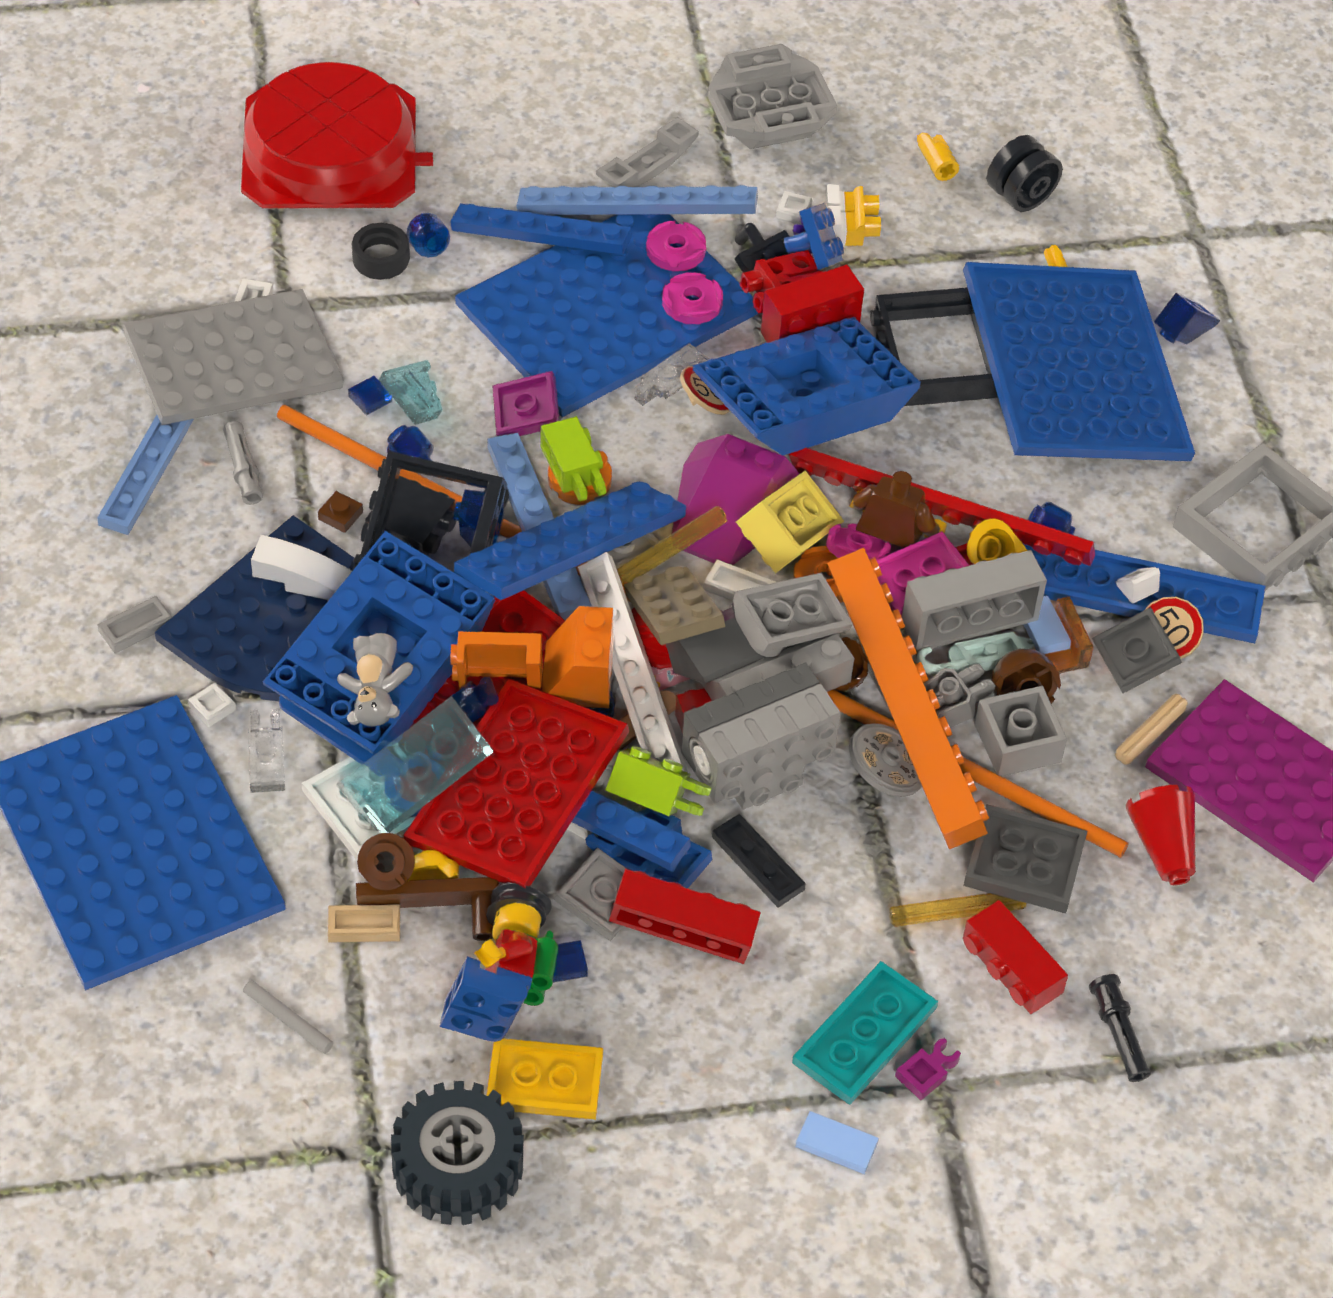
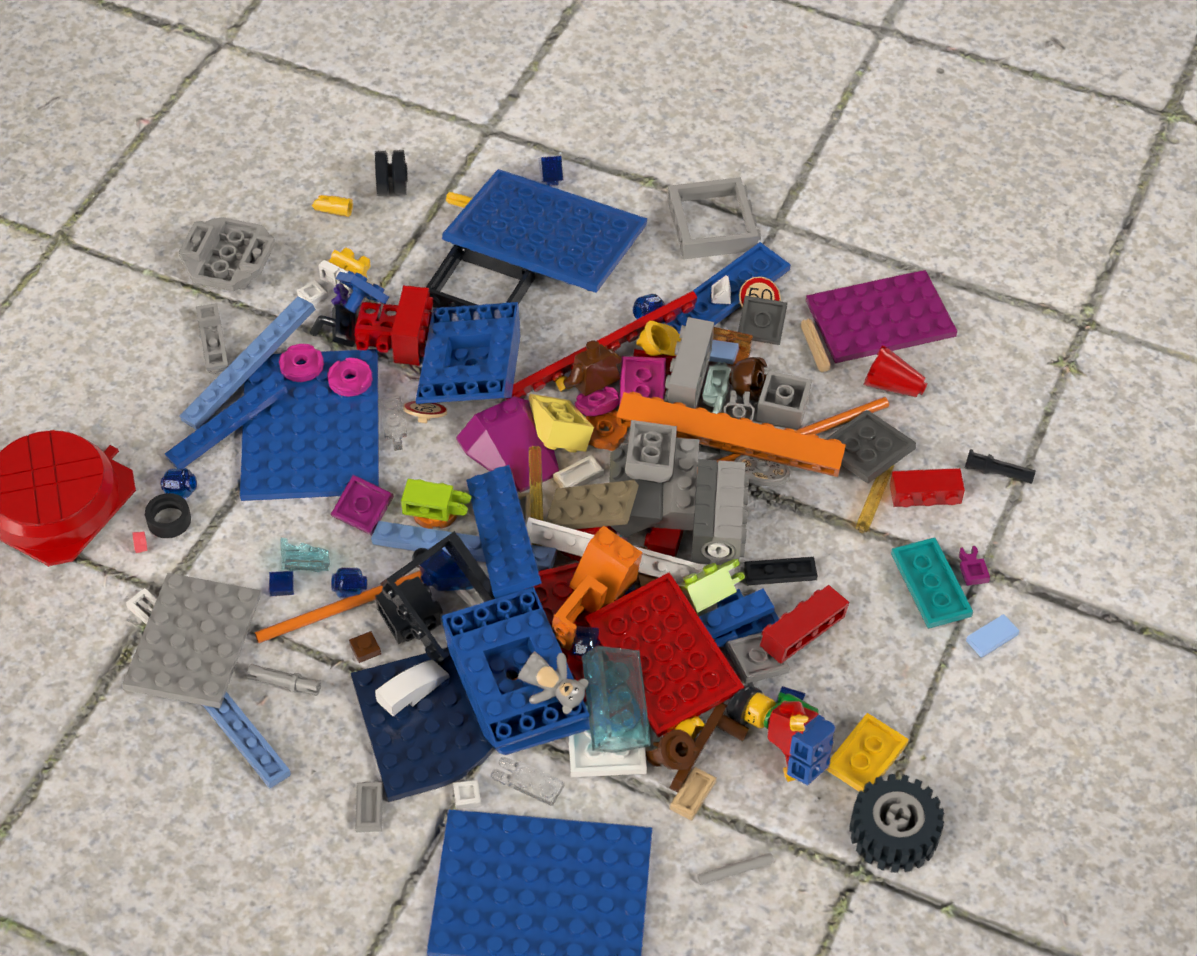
camera: 55 degrees left, 0 degrees up
(328, 246) = (139, 542): none -> coral axle

